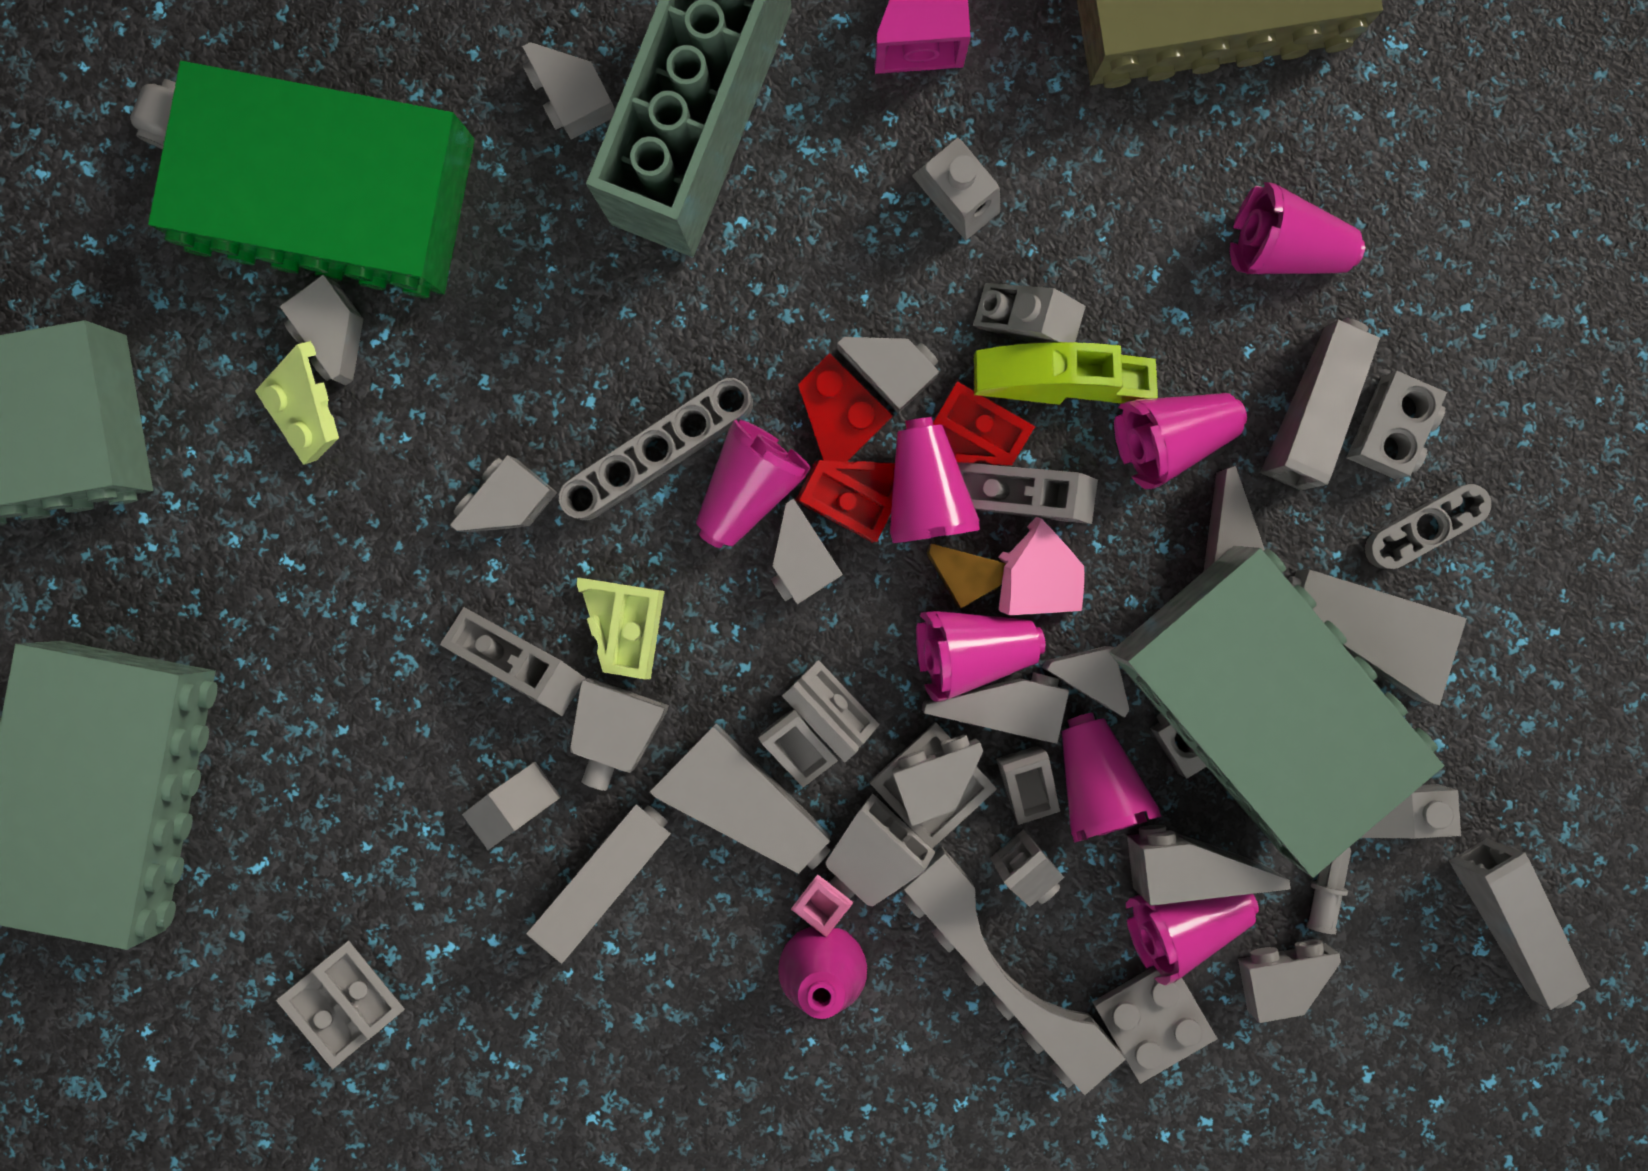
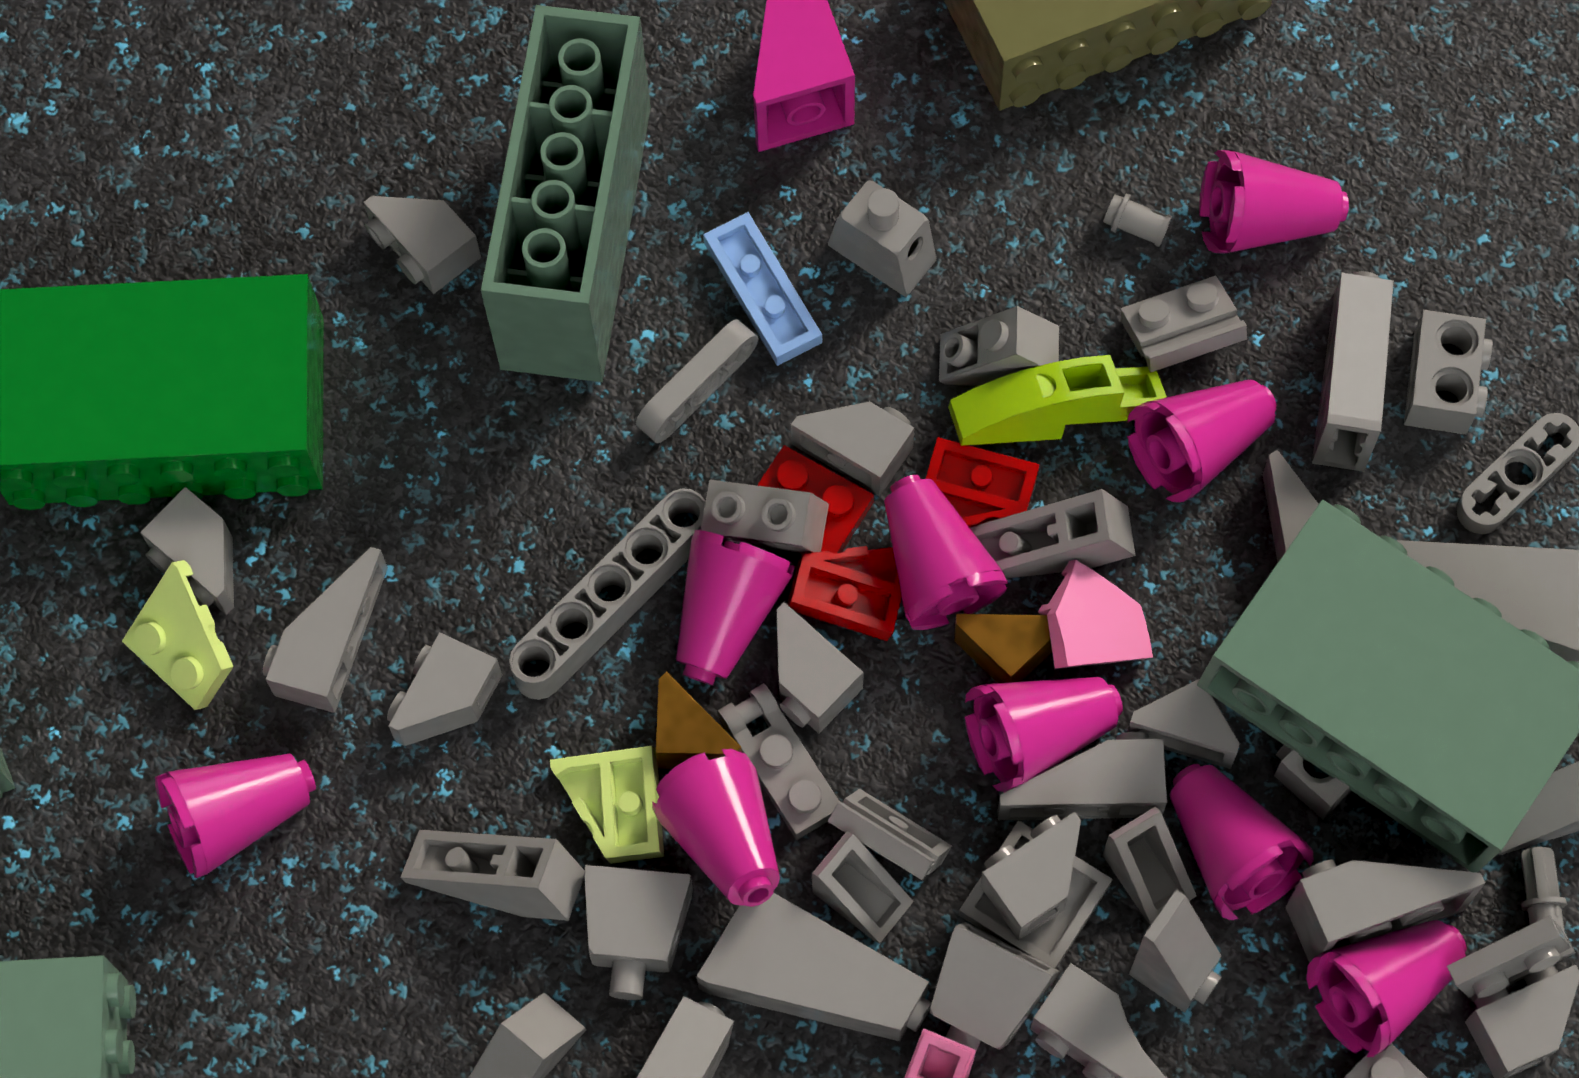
camera: 10 degrees left, 20 degrees down
(313, 558) = (230, 805): none -> dark pink cone
(414, 436) = (324, 639): none -> light grey slope
(690, 583) = (686, 727): none -> pearl gold slope
(697, 681) = (721, 823): none -> dark pink cone
(761, 623) = (781, 762): none -> light grey plate
(771, 278) = (697, 381): none -> light grey beam
(795, 420) = (765, 516): none -> light grey brick
(846, 206) = (762, 288): none -> light blue plate
(1179, 220) = (1137, 219): none -> light grey pin
(1191, 326) = (1183, 323): none -> light grey plate
(1311, 940) = (1511, 959): none -> light grey plate

